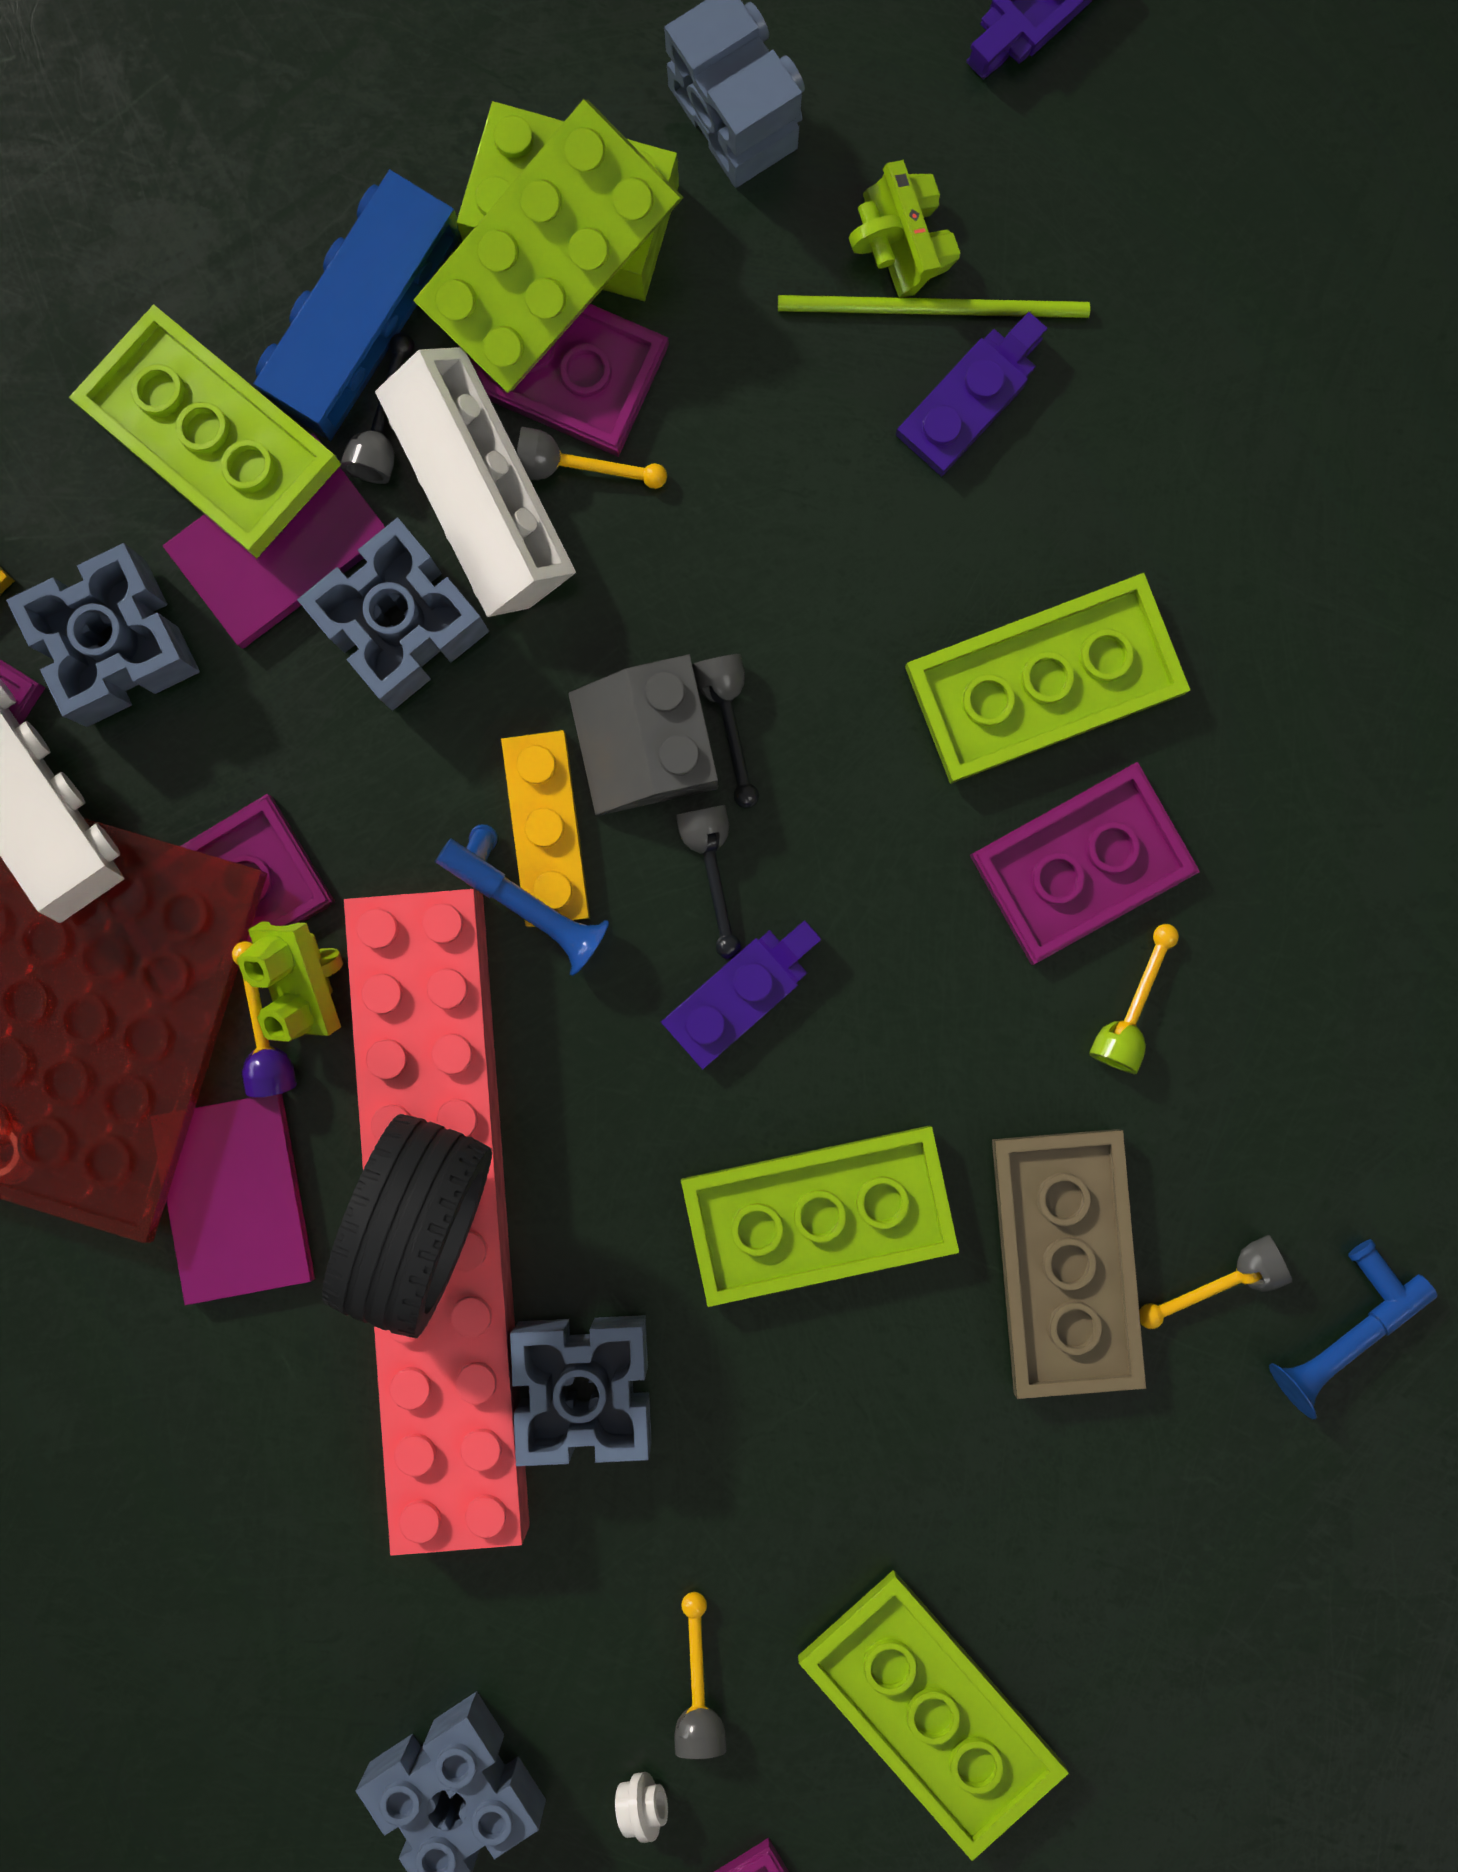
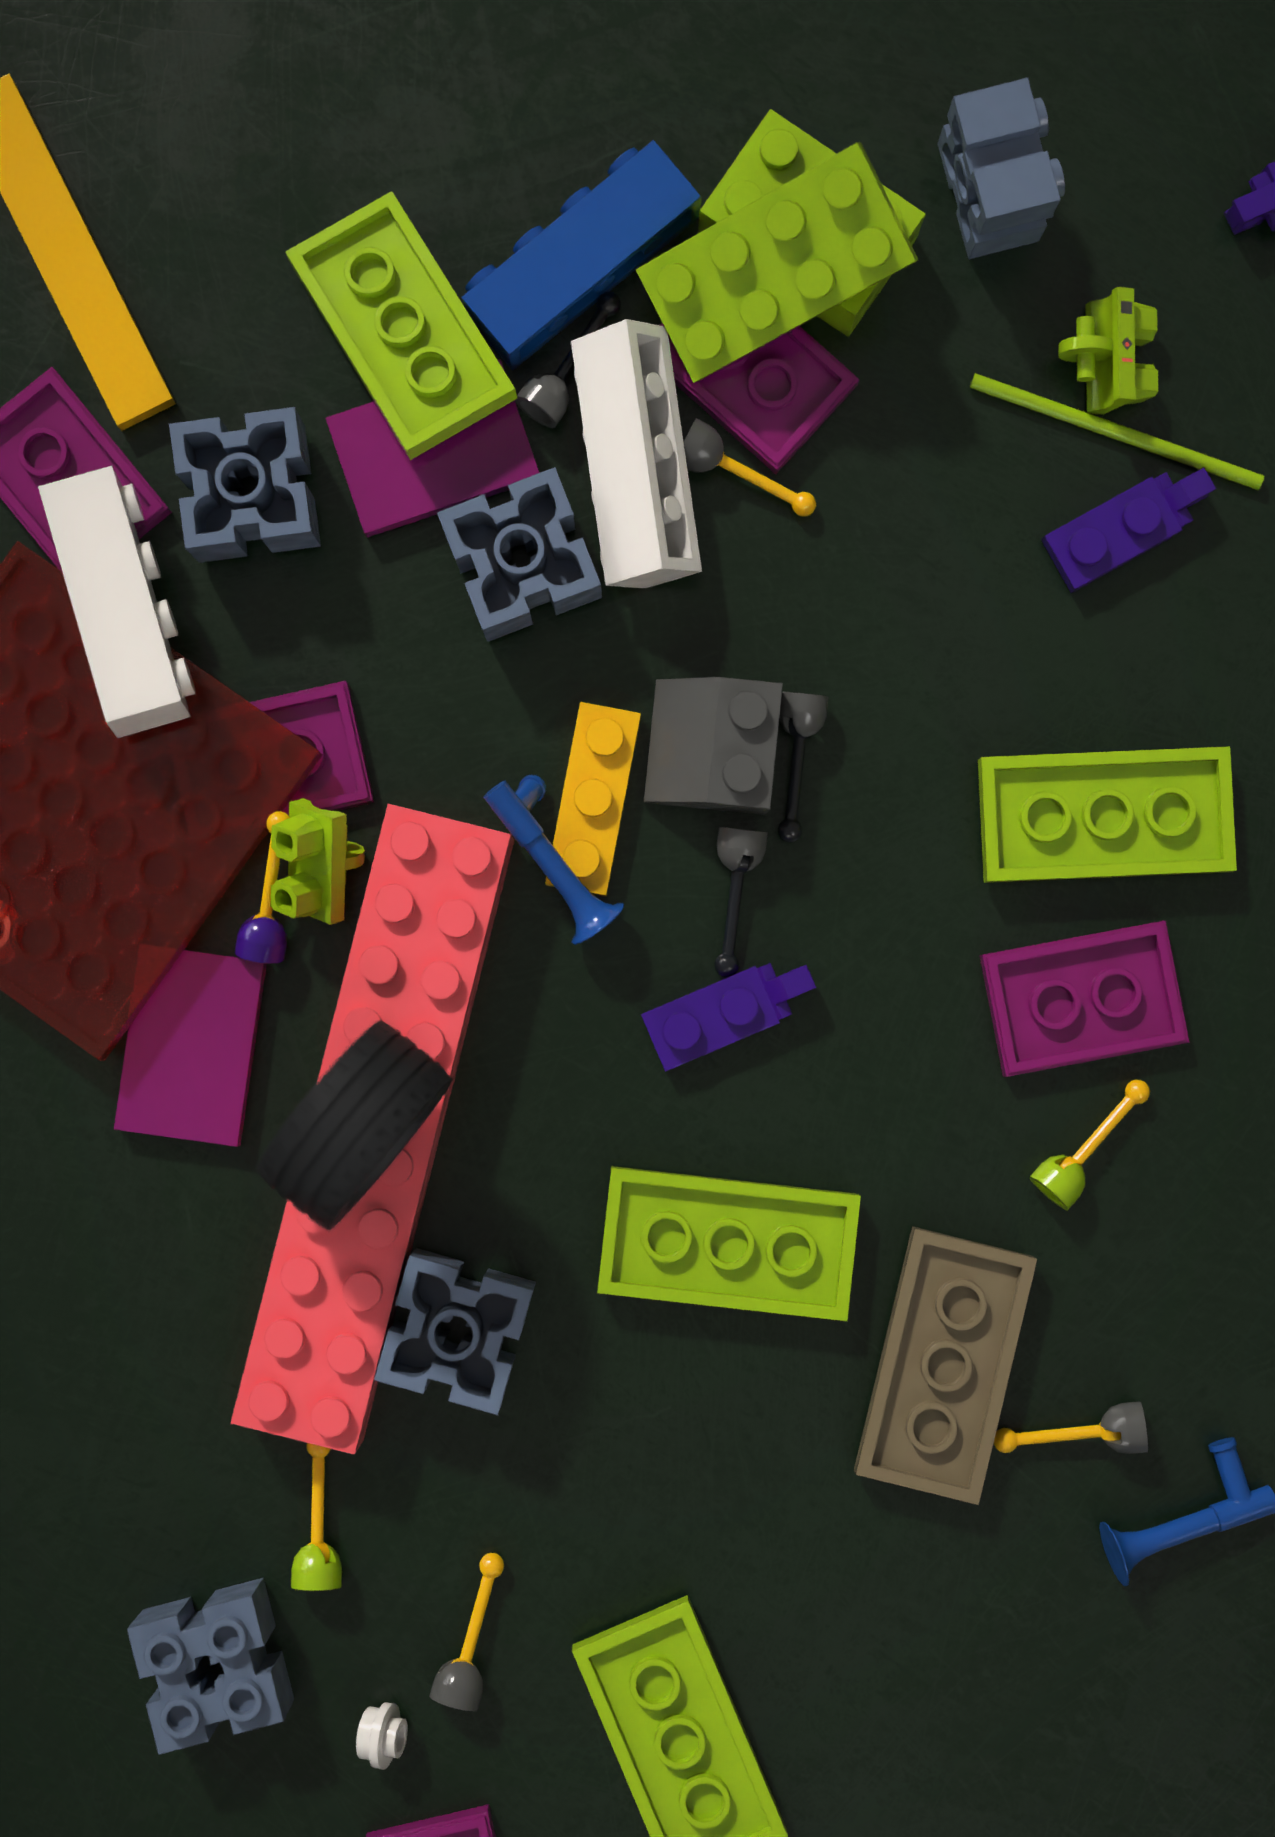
camera: 15 degrees right, 0 degrees up
(523, 1661) = (317, 1563): none -> hinge

